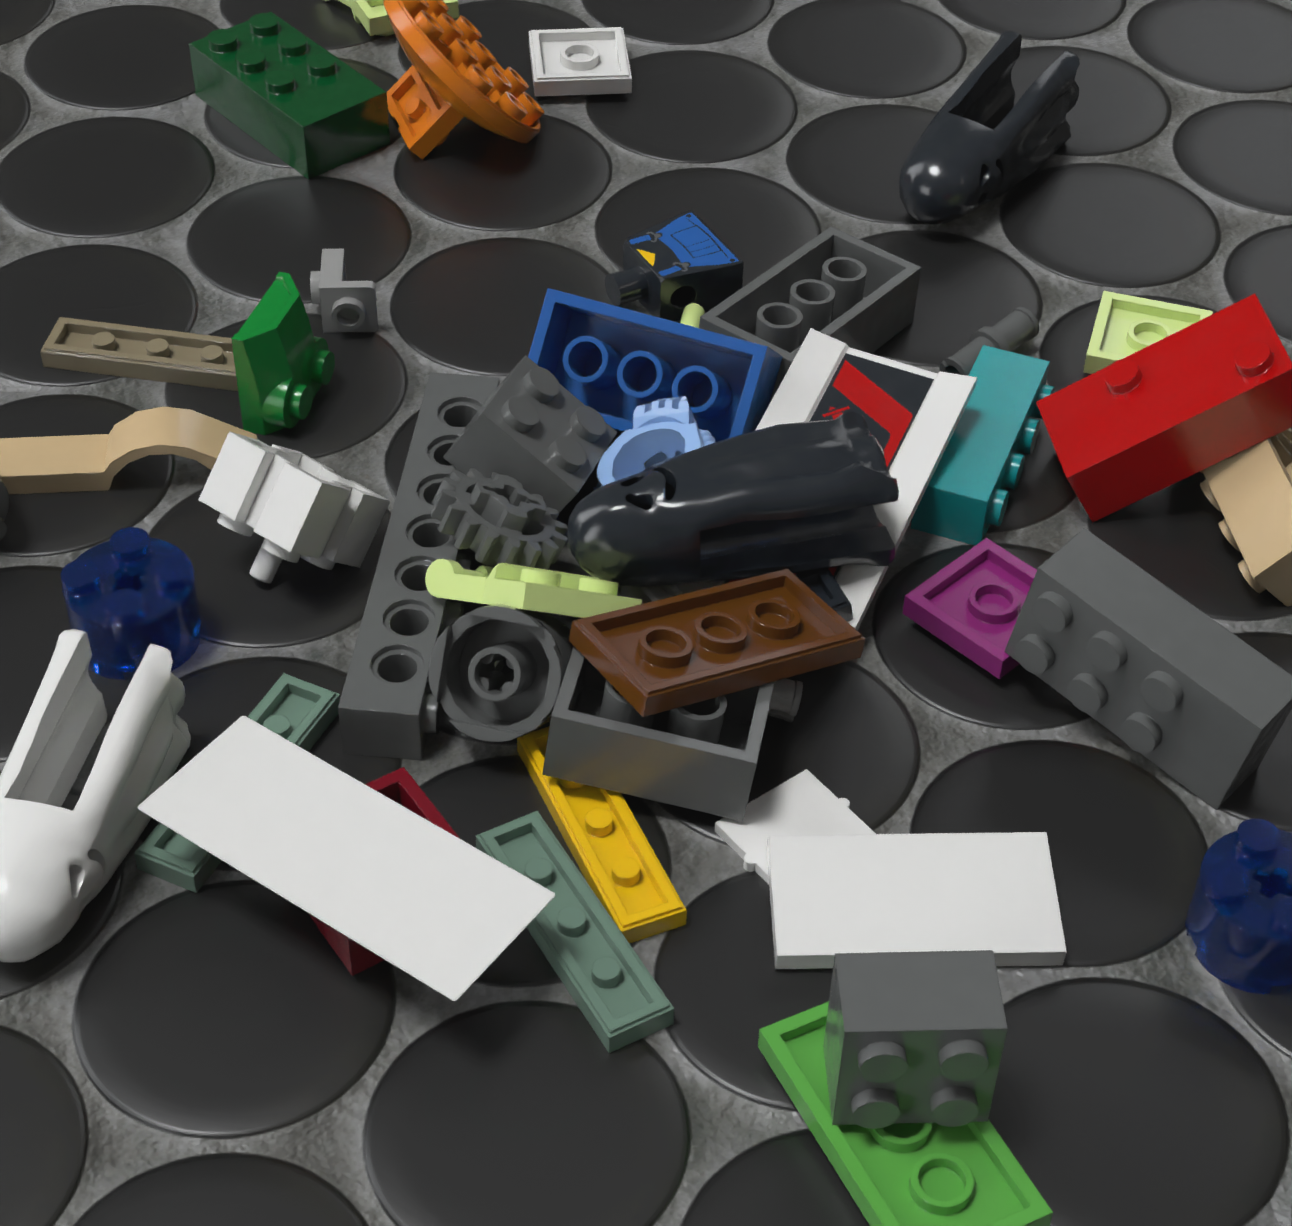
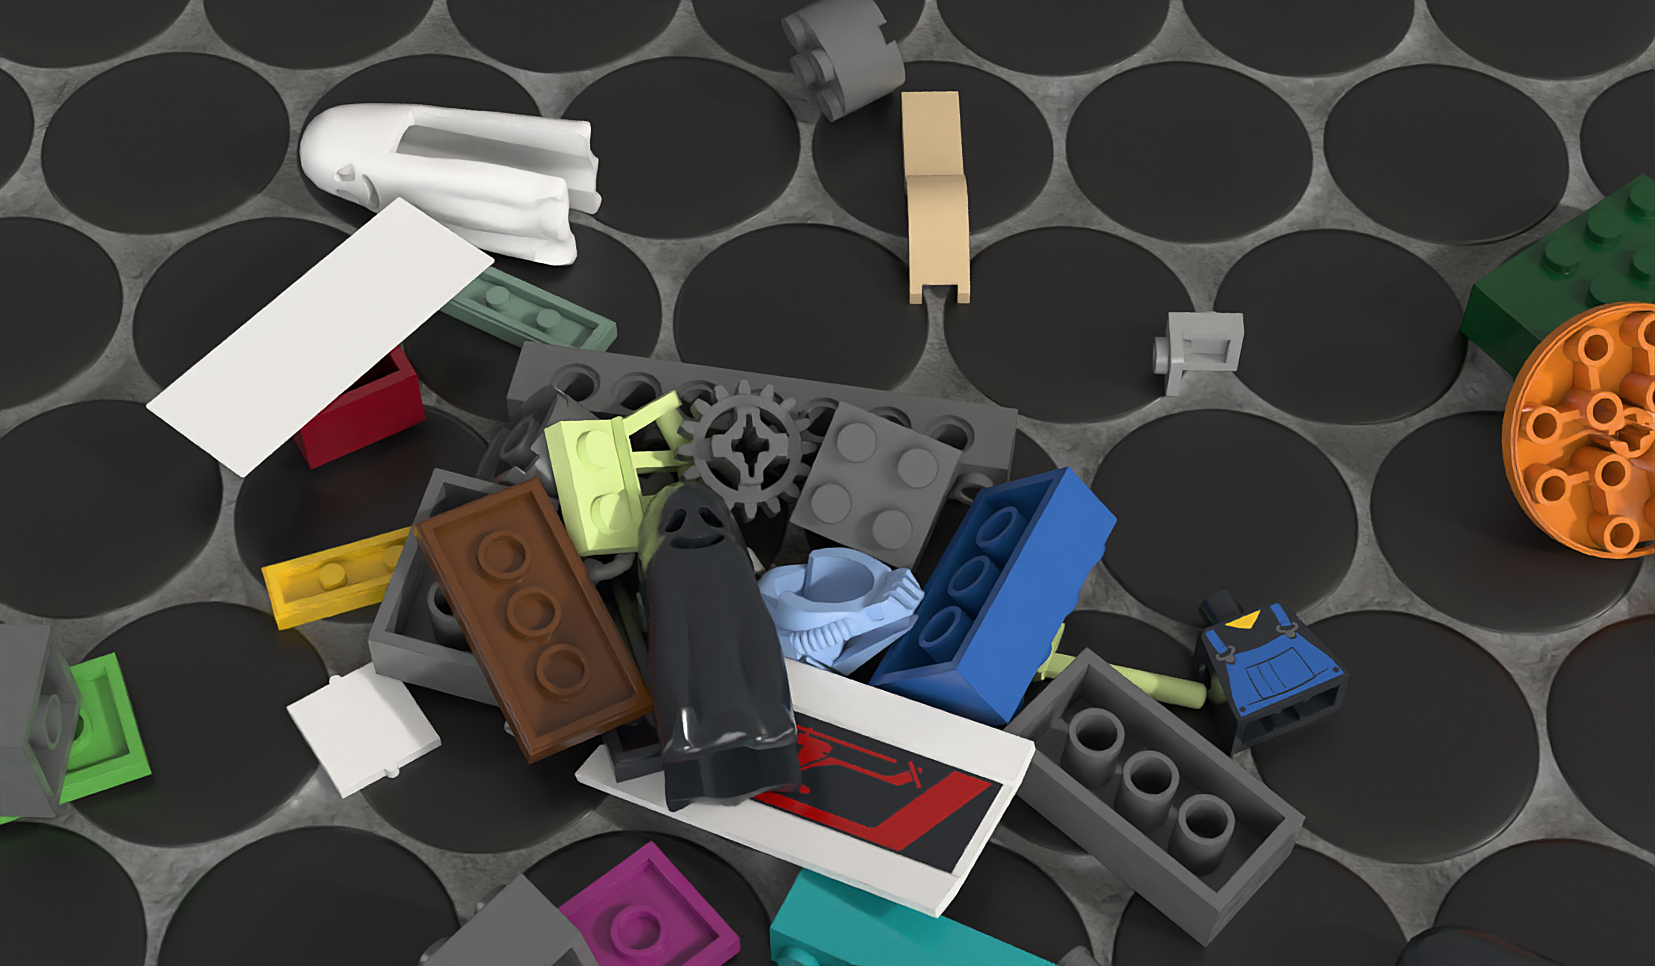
camera: 95 degrees right, 10 degrees up
(132, 597) = (697, 203): clear blue brick -> none
(141, 353) = (1104, 215): dark tan tile -> none
(279, 361) = (1048, 285): green slope -> none
(292, 504) = (805, 297): white brick -> none
(581, 937) = (318, 521): sand green tile -> none
(913, 896) = (248, 809): white tile -> none

